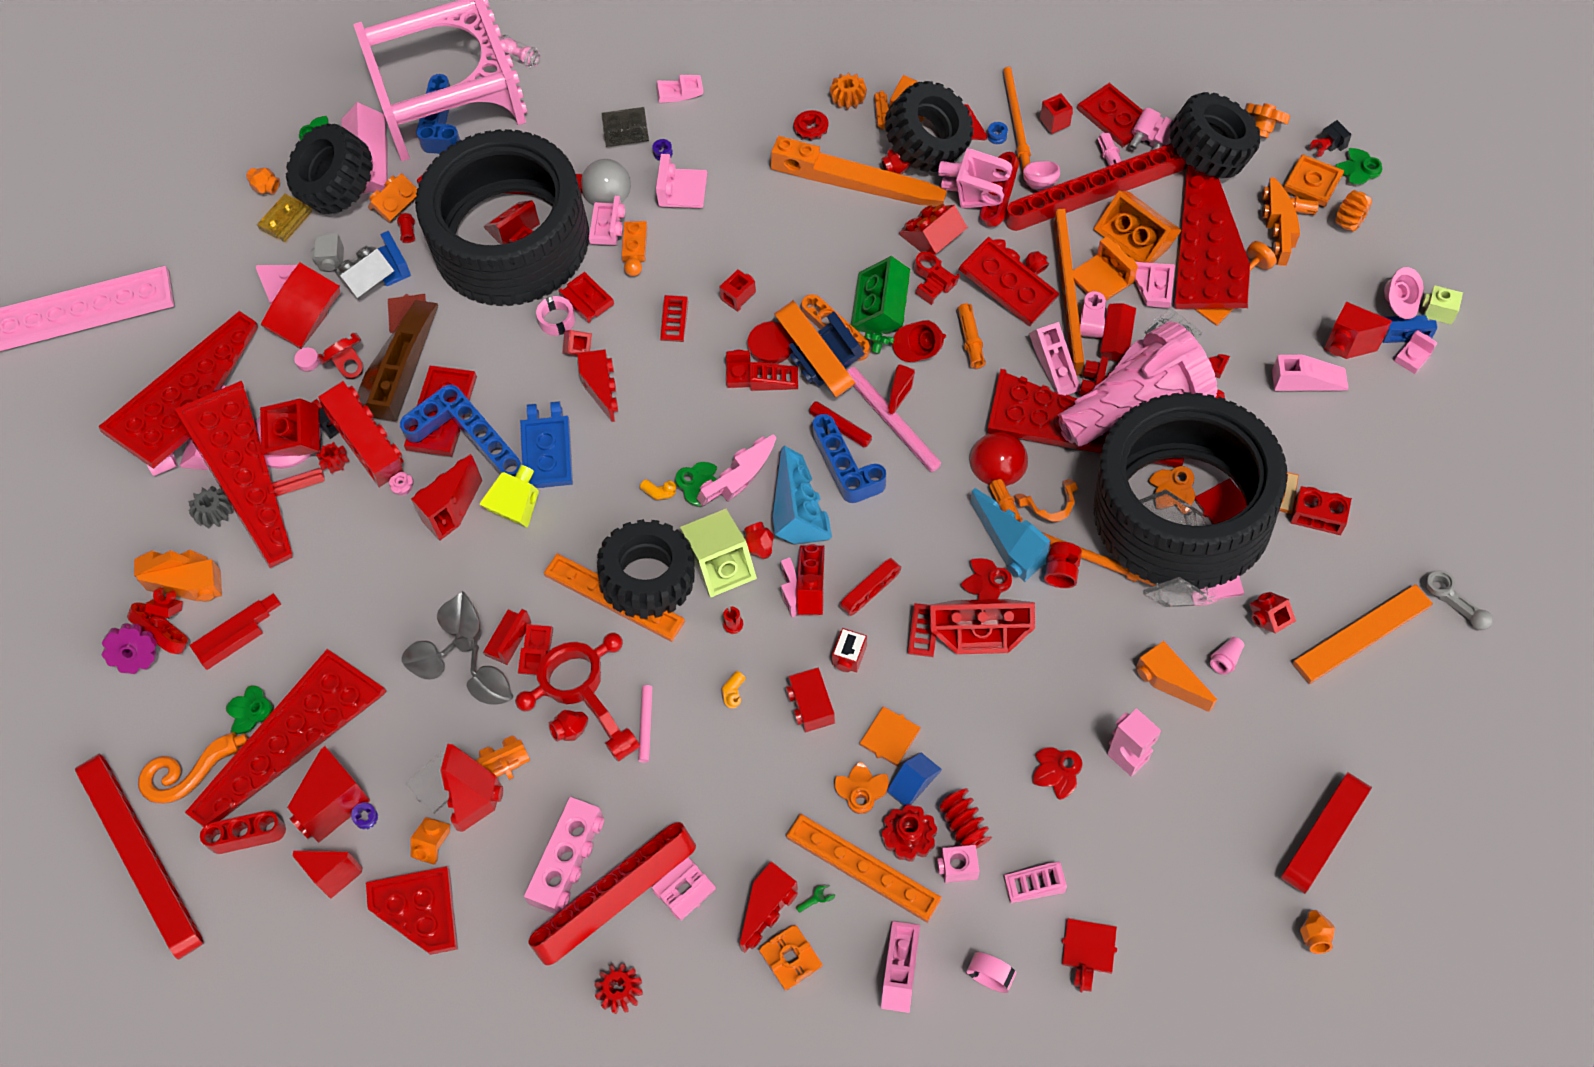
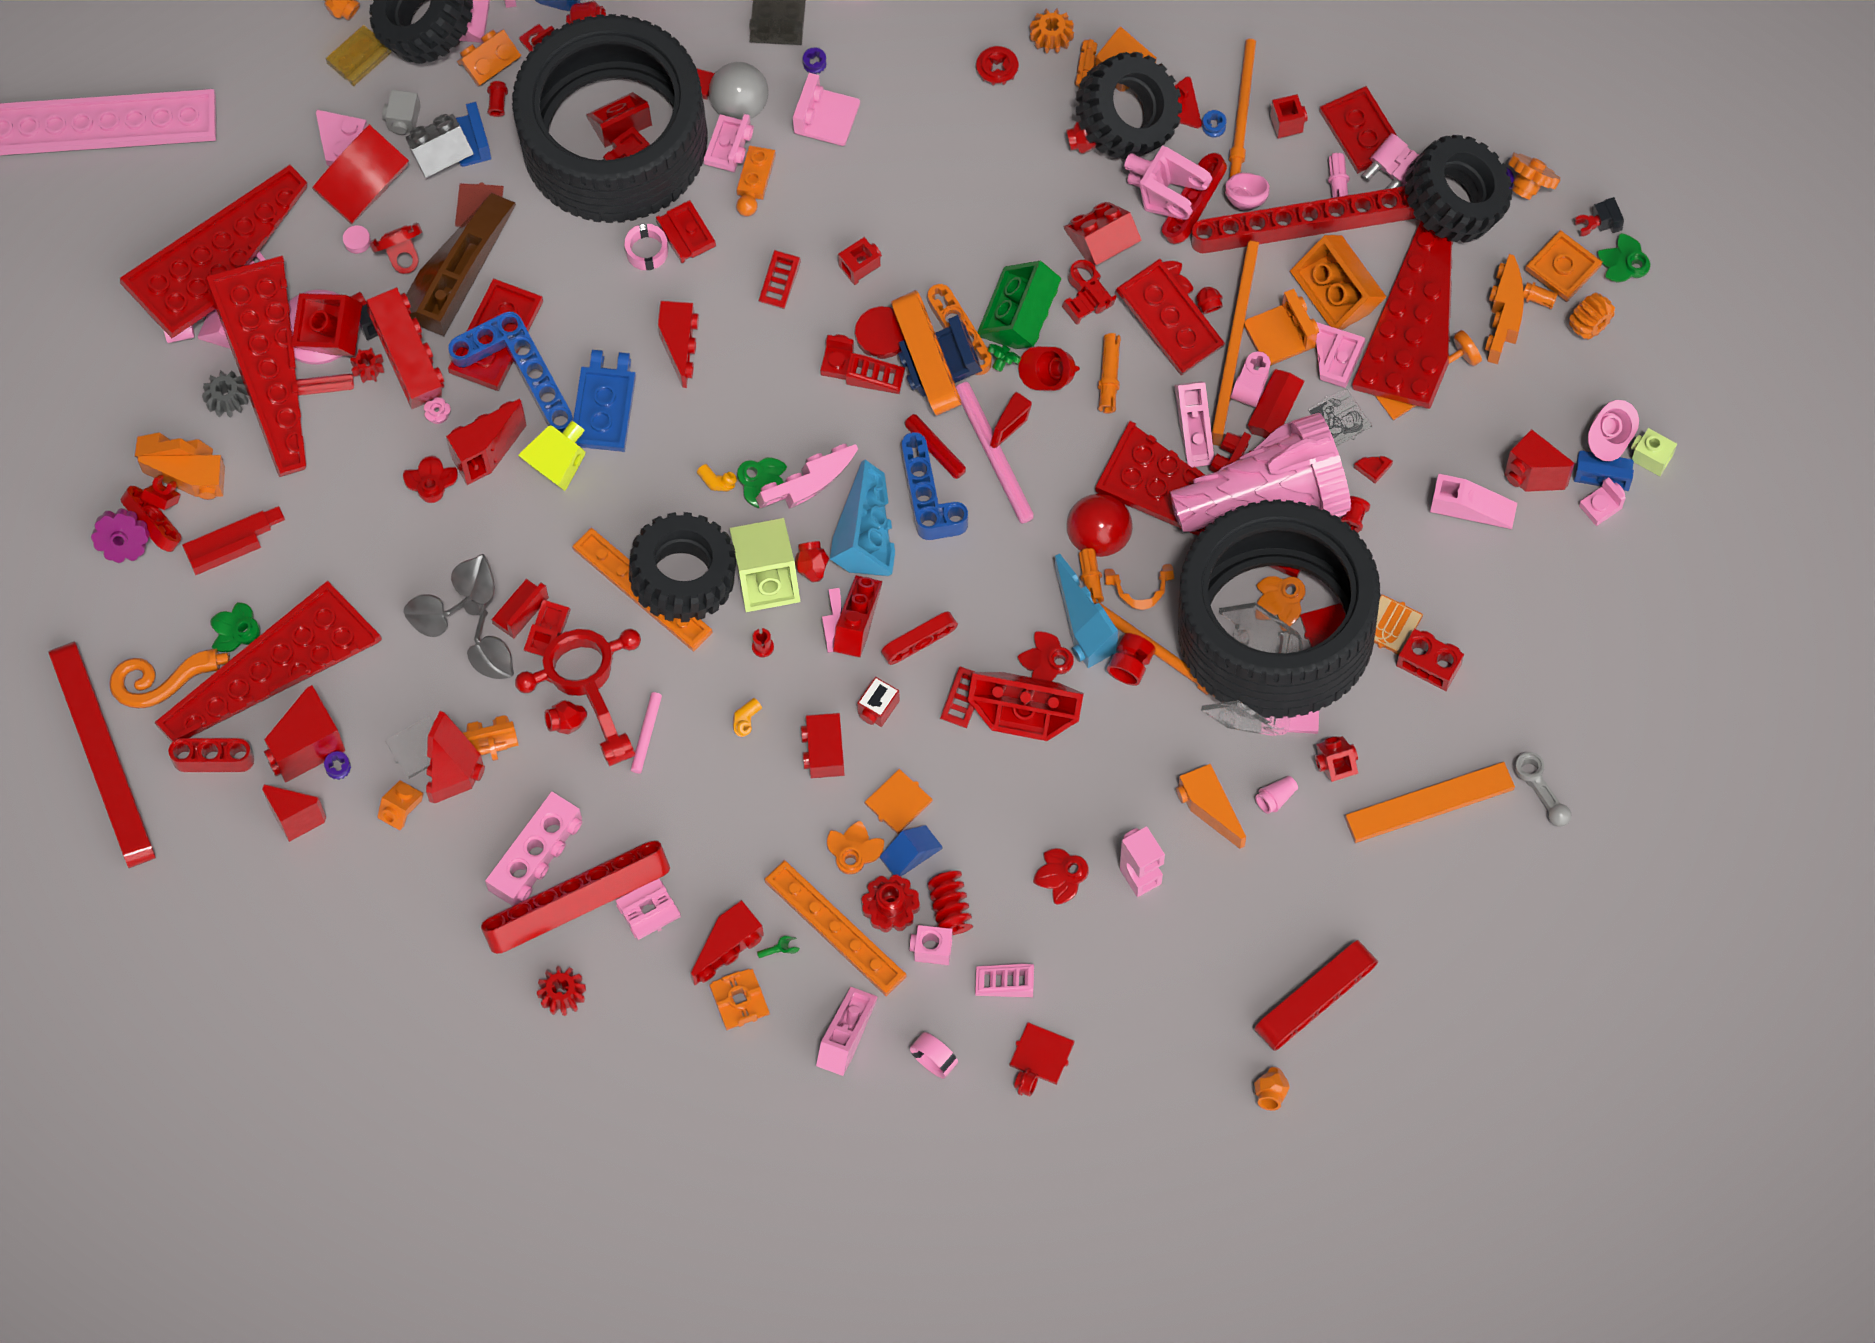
camera: 10 degrees right, 5 degrees up
(405, 542) = (430, 479): none -> red plate
(417, 907) = (375, 869): red plate -> none
(576, 342) = (663, 286): red slope -> none
(807, 162) = (984, 119): orange piece -> none

